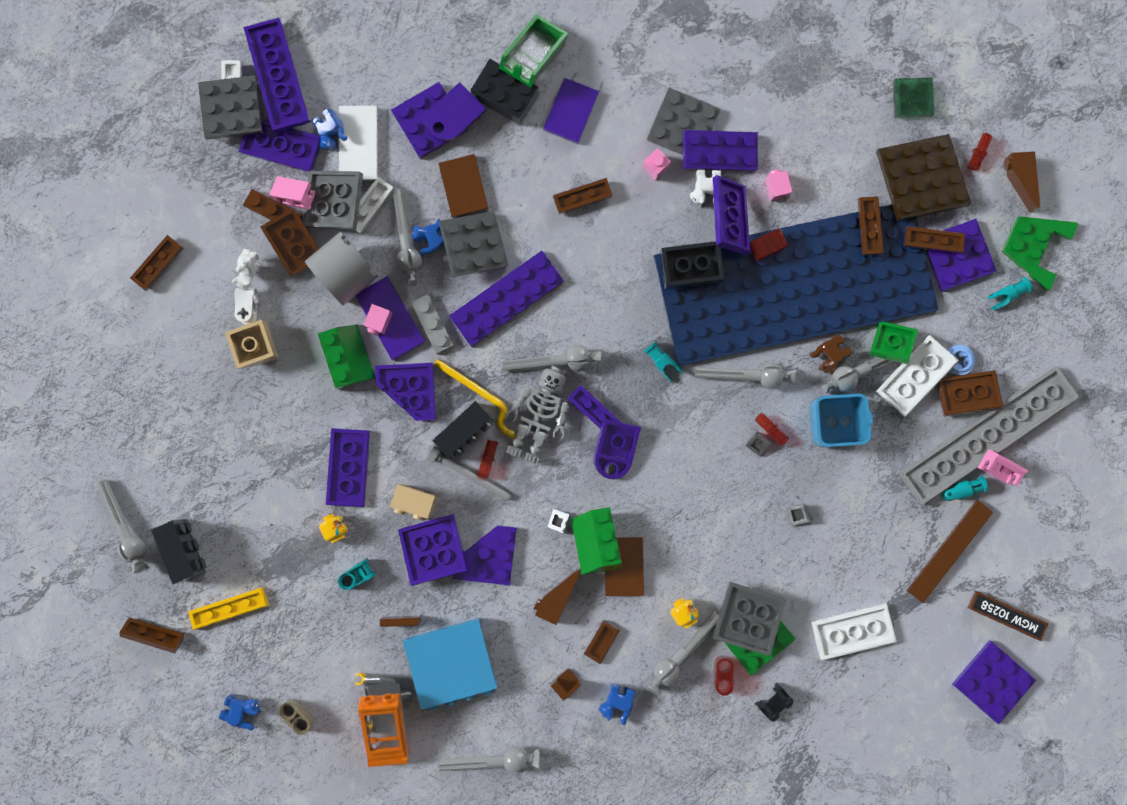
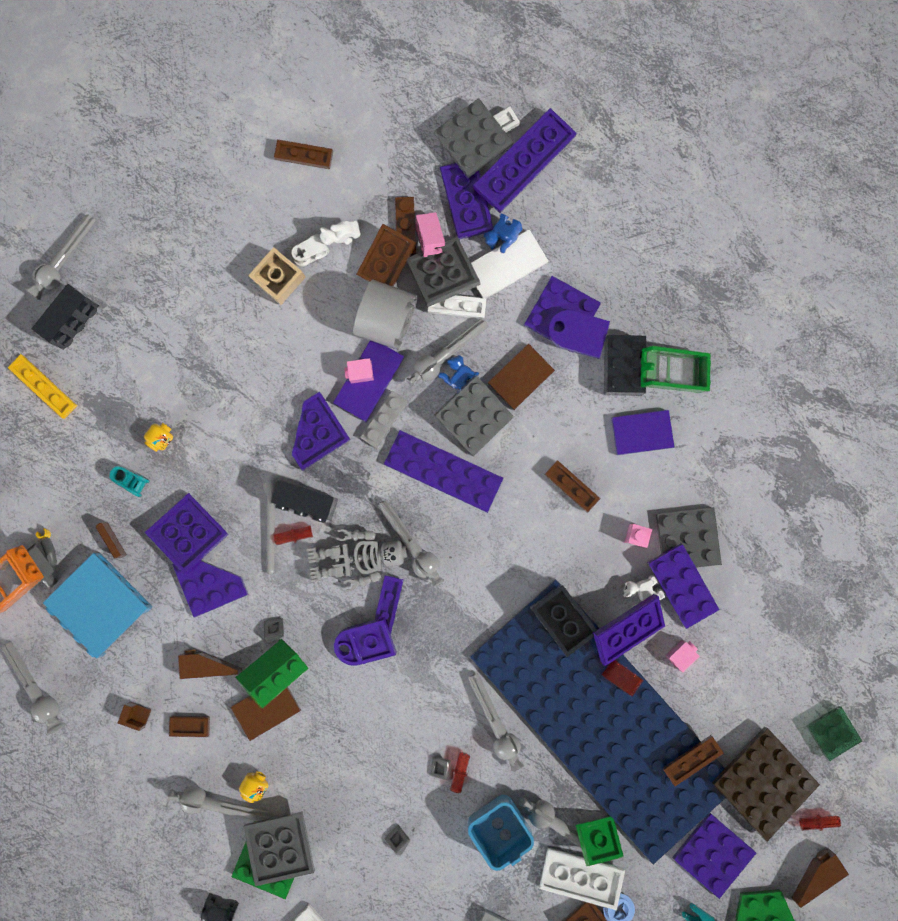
camera: 60 degrees right, 0 degrees up
(346, 356) = (313, 361): green slope -> none
(348, 467) = (219, 418): dark purple tile -> none
(414, 501) = (218, 493): tan slope -> none
(482, 392) = (349, 497): yellow piece -> none
(620, 701) = (145, 771): blue animal -> none
(661, 359) = (466, 638): teal piece -> none
(723, 675) = (217, 851): clear red beam -> none
(833, 353) = (560, 788): reddish brown animal -> none
(934, 240) = (713, 826): reddish brown plate -> none

